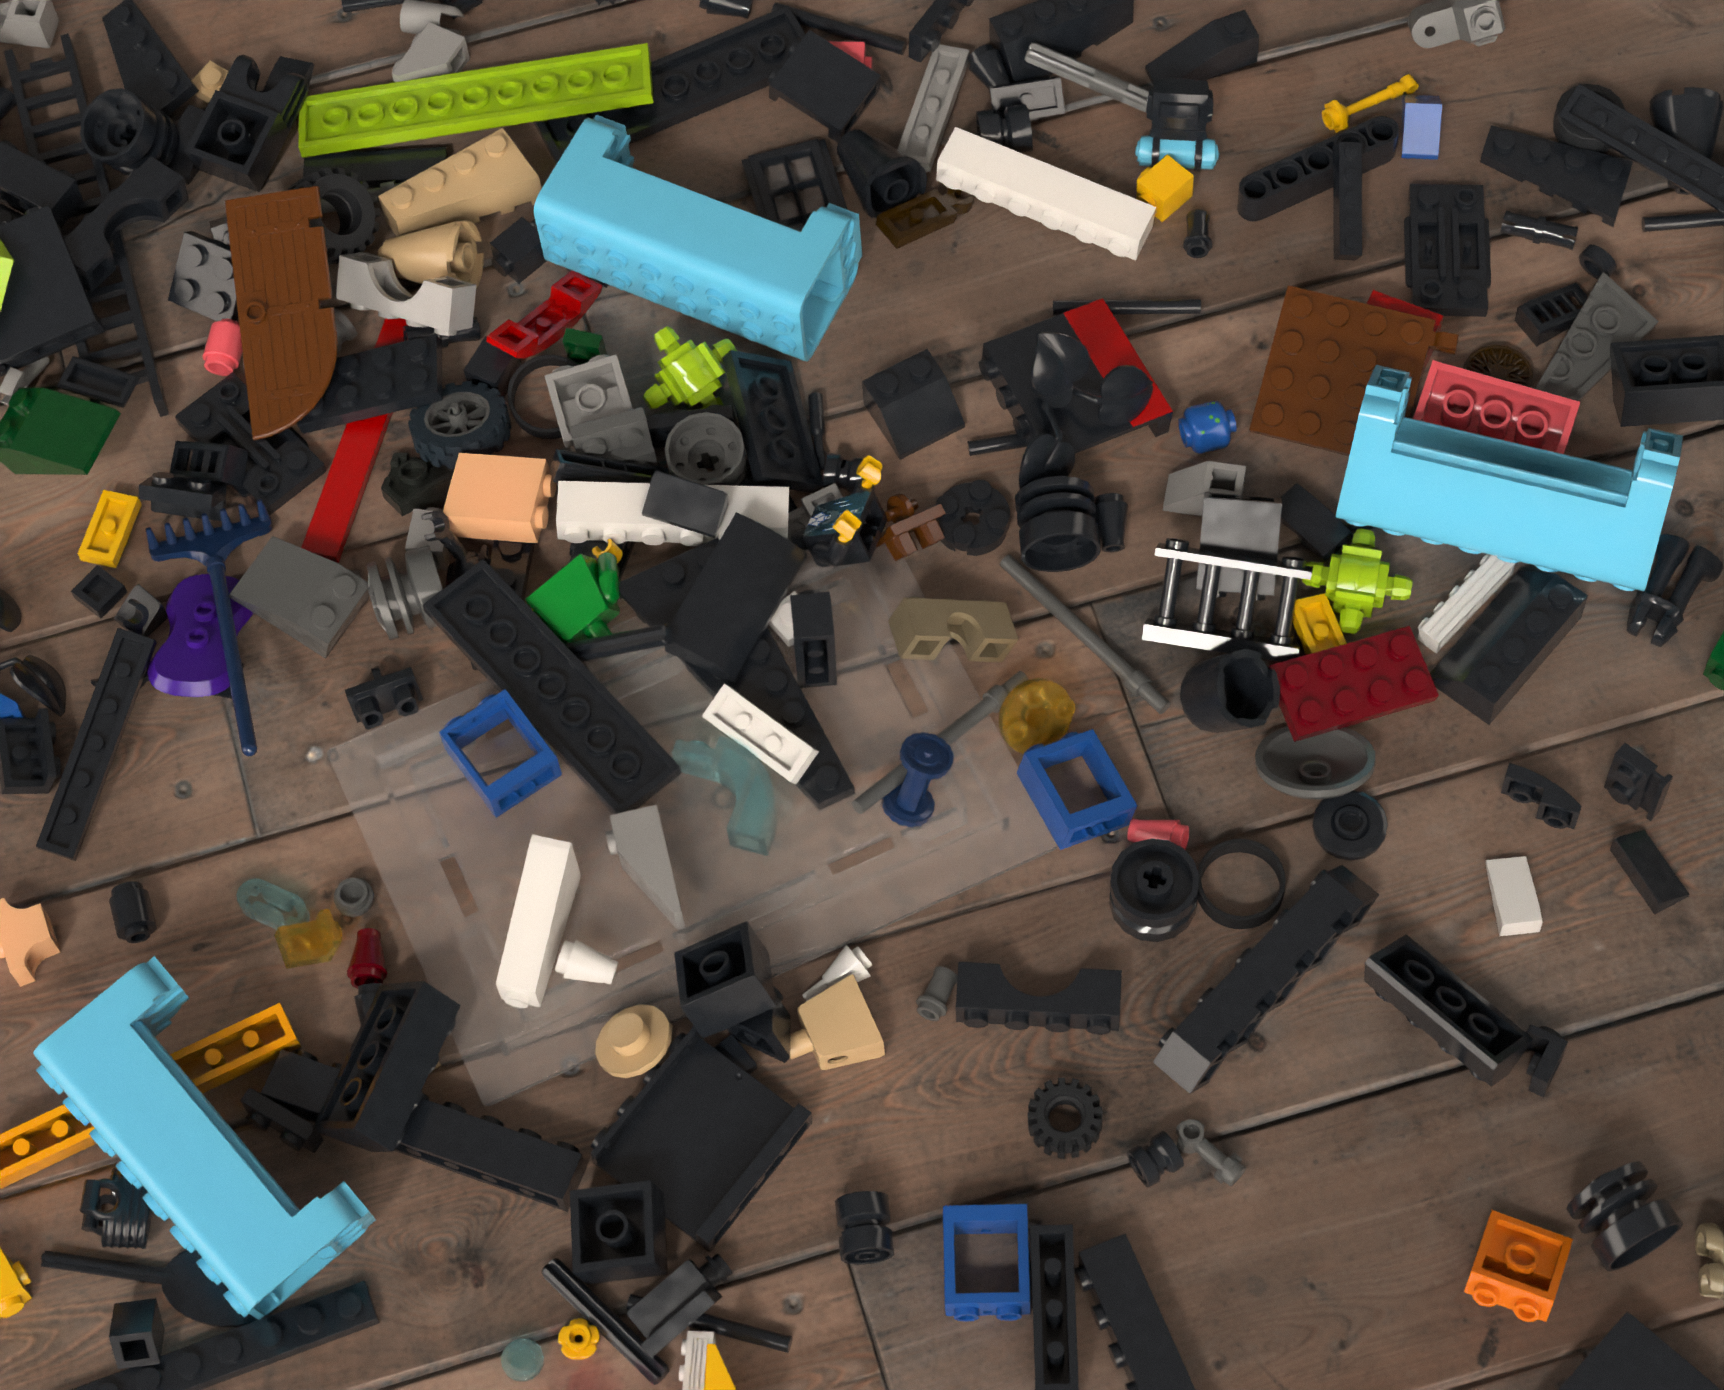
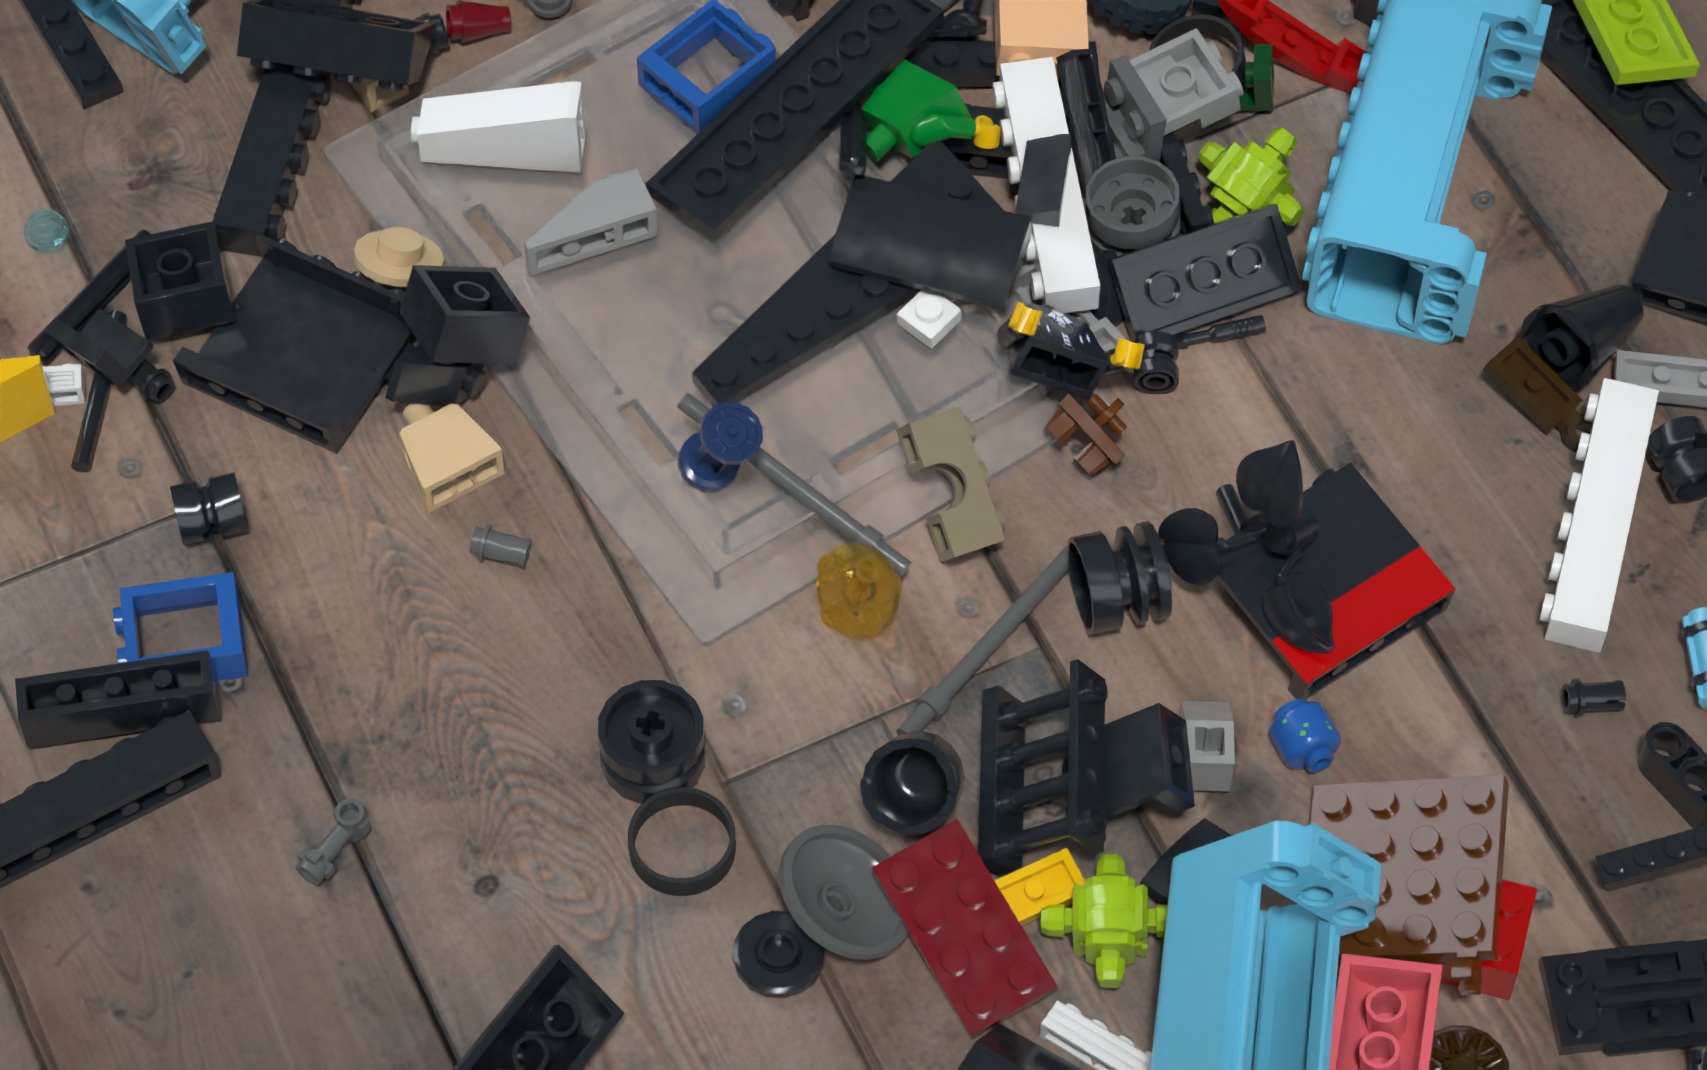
camera: 75 degrees right, 5 degrees down
(583, 1349) = (70, 285): yellow plate -> none
(584, 963) = (468, 184): white cone -> none
(738, 769) = (698, 305): clear light blue arch -> none
(760, 734) = (761, 294): white plate -> none
(793, 182) = (1541, 263): black piece -> none
(813, 639) = (879, 315): black brick -> none
(844, 965) = (521, 456): white cone -> none
(912, 404) = (1267, 407): black slope -> none
(993, 519) = (1122, 481): black plate -> none
(1064, 1094) = (359, 667): black tyre -> none
(1087, 1003) = (507, 693): black arch -> none
(1090, 822) = (734, 671): blue window -> none
(1111, 520) = (1149, 646): black cone -> none
(1145, 306) = (1468, 636): black bar -> none
(1152, 1160) = (317, 784): black wheel -> none
(1159, 829) = (729, 751): coral cone -> none
(1165, 187) = (1649, 647): yellow brick -> none
(1264, 977) = (558, 872): black brick -> none

